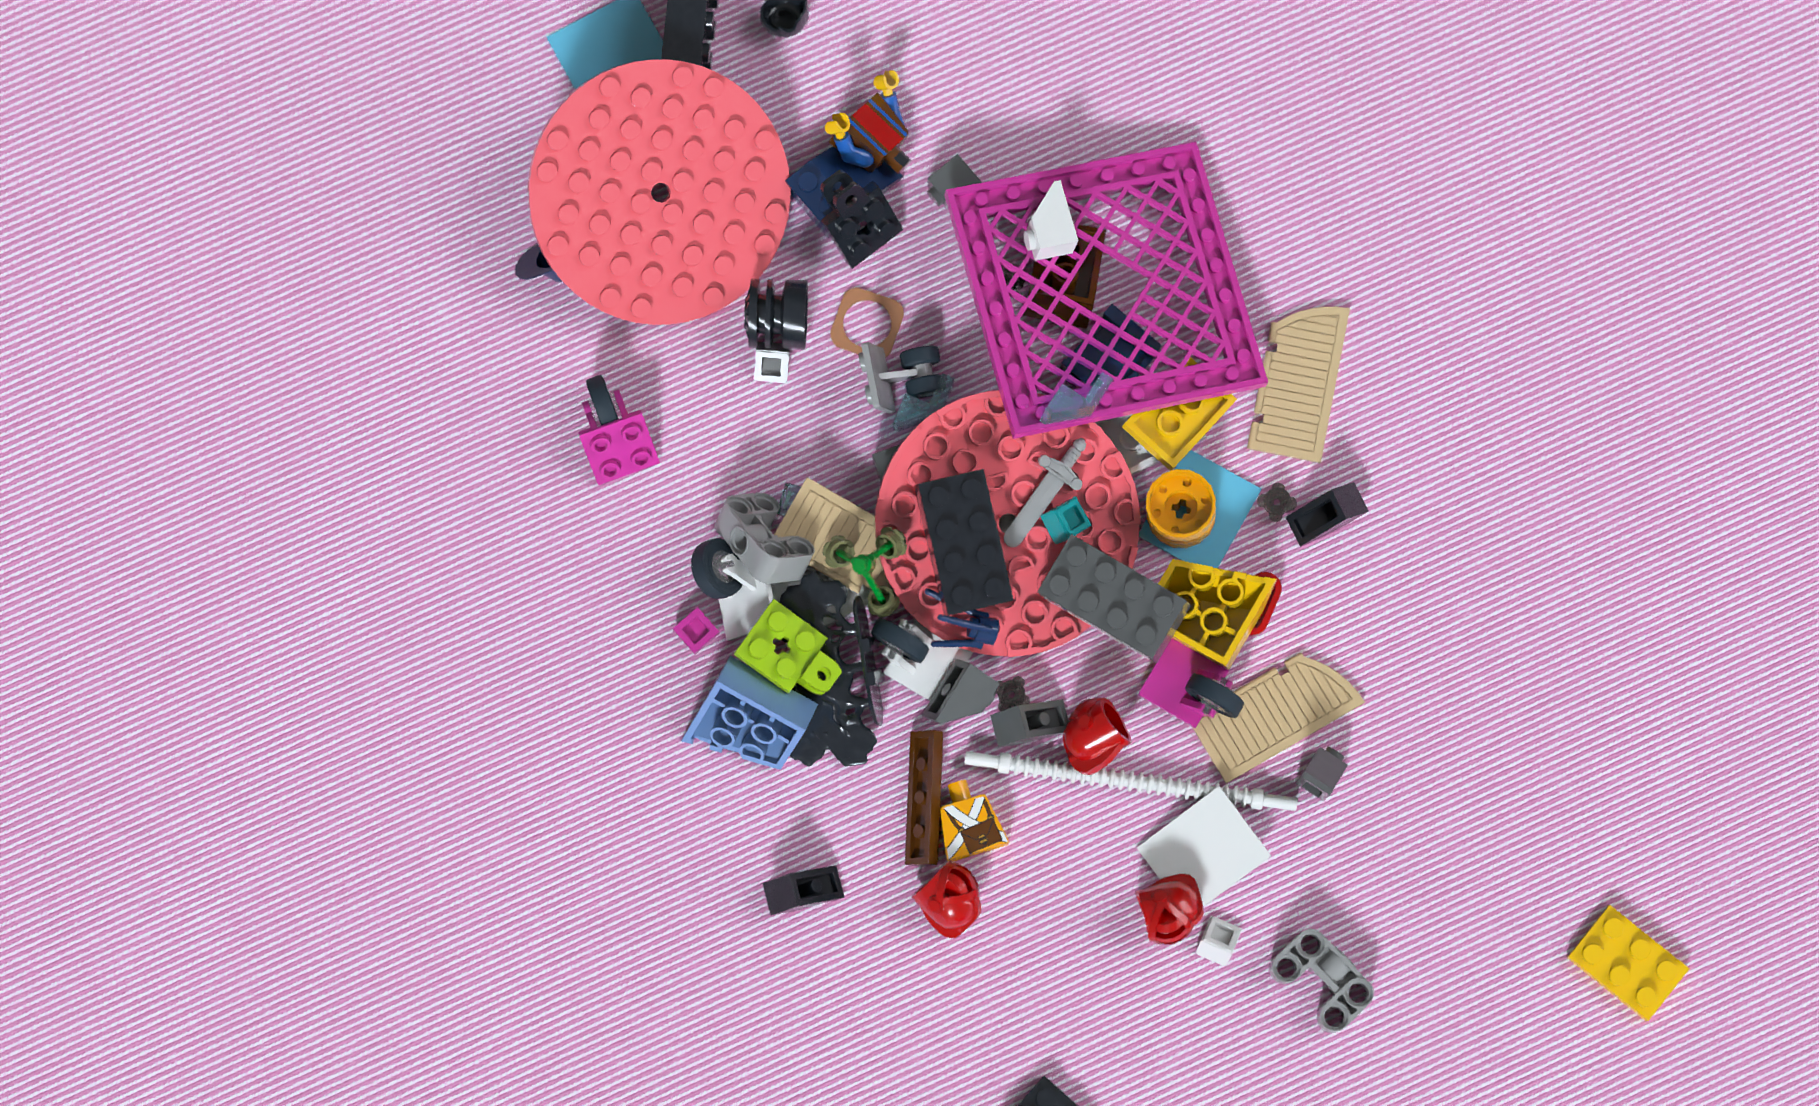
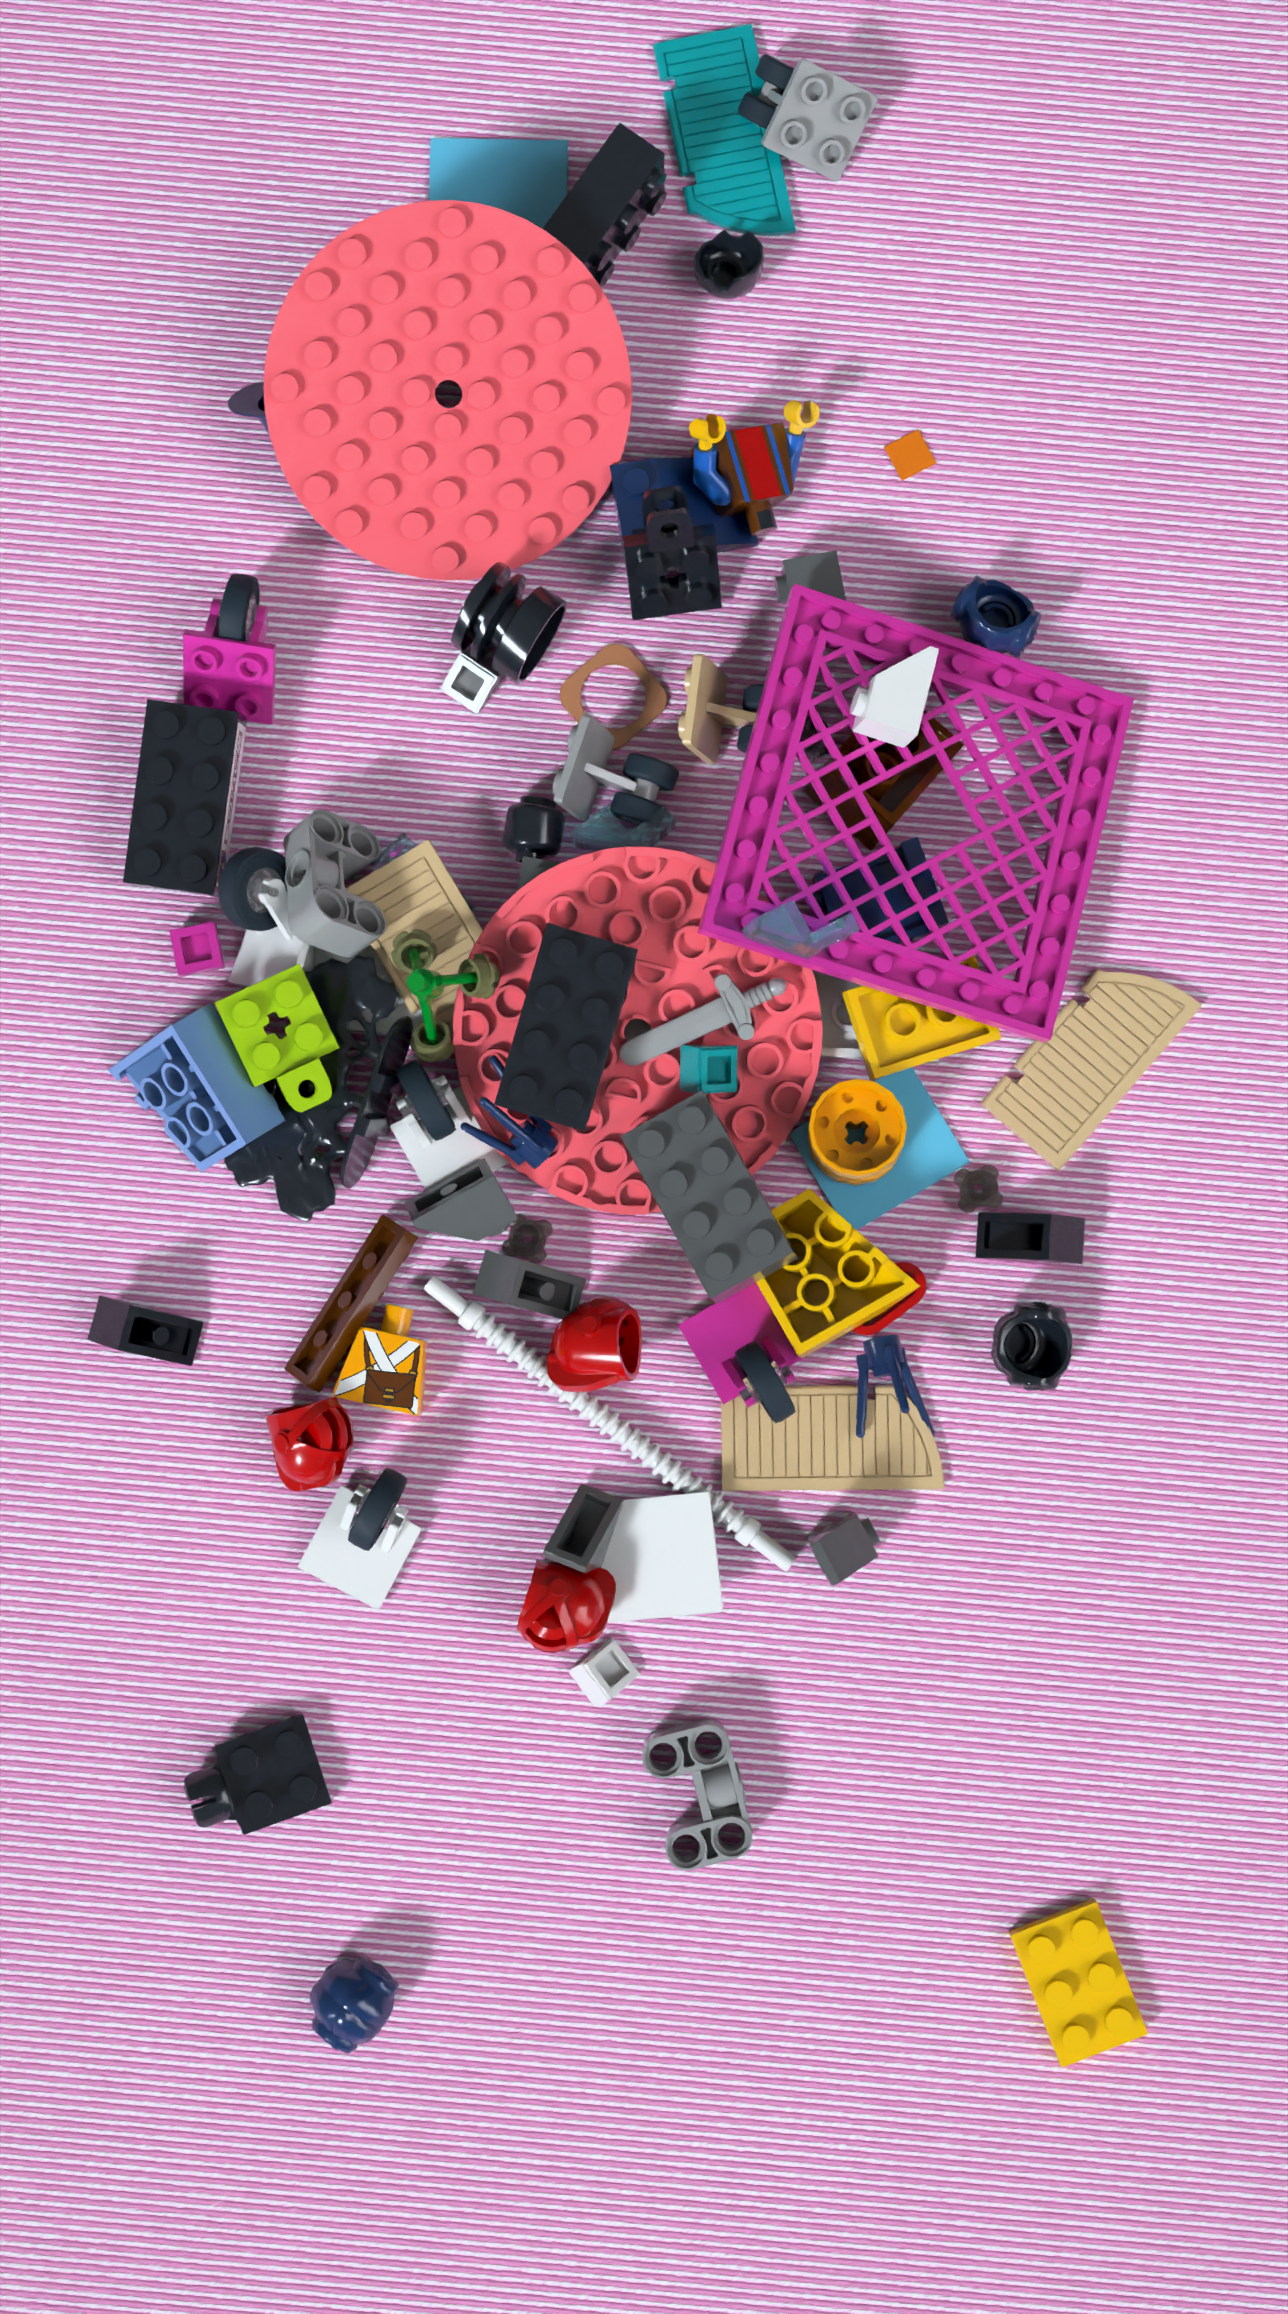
camera: 30 degrees right, 5 degrees up
(635, 539) = (184, 797): none -> black brick
(866, 434) = (533, 828): none -> black head
(935, 308) = (706, 710): none -> tan plate
(966, 67) = (910, 455): none -> orange sticker
(1018, 942) = (363, 1540): none -> white plate
(1081, 139) = (995, 616): none -> dark blue hair
(1155, 853) = (585, 1530): none -> dark grey slope
(1281, 640) = (886, 1359): none -> dark blue plant
(1367, 579) = (1032, 1345): none -> black hair

